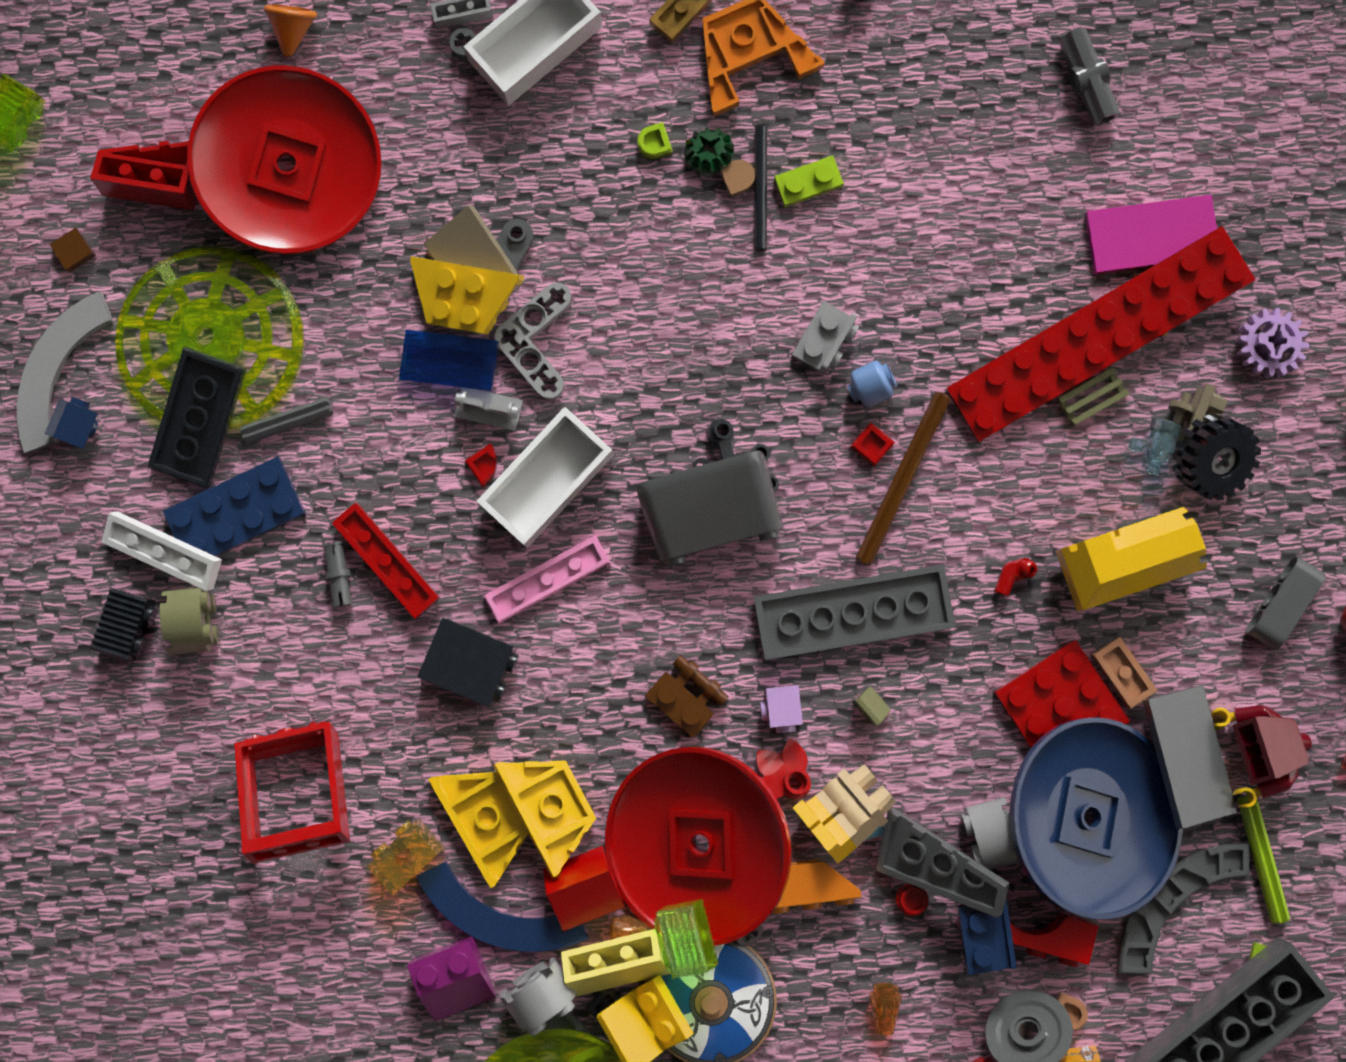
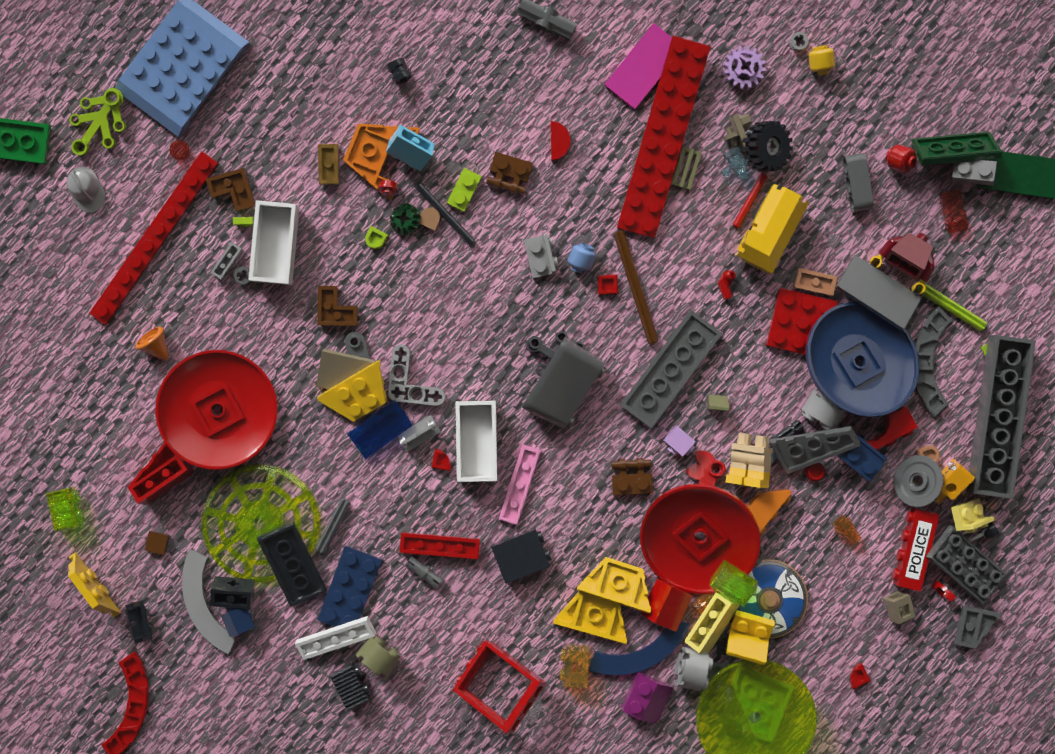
camera: 50 degrees left, 5 degrees up
(97, 384) = (232, 592): none -> black brick
(522, 175) = (330, 313): none -> reddish brown plate
(723, 93) = (388, 188): none -> red plate
(792, 72) = (410, 148): none -> medium azure brick
(887, 206) = (511, 167): none -> reddish brown plate
(939, 823) = (796, 426): none -> black axle
(973, 227) = (559, 140): none -> red tile
(1133, 504) = (750, 200): none -> red bar

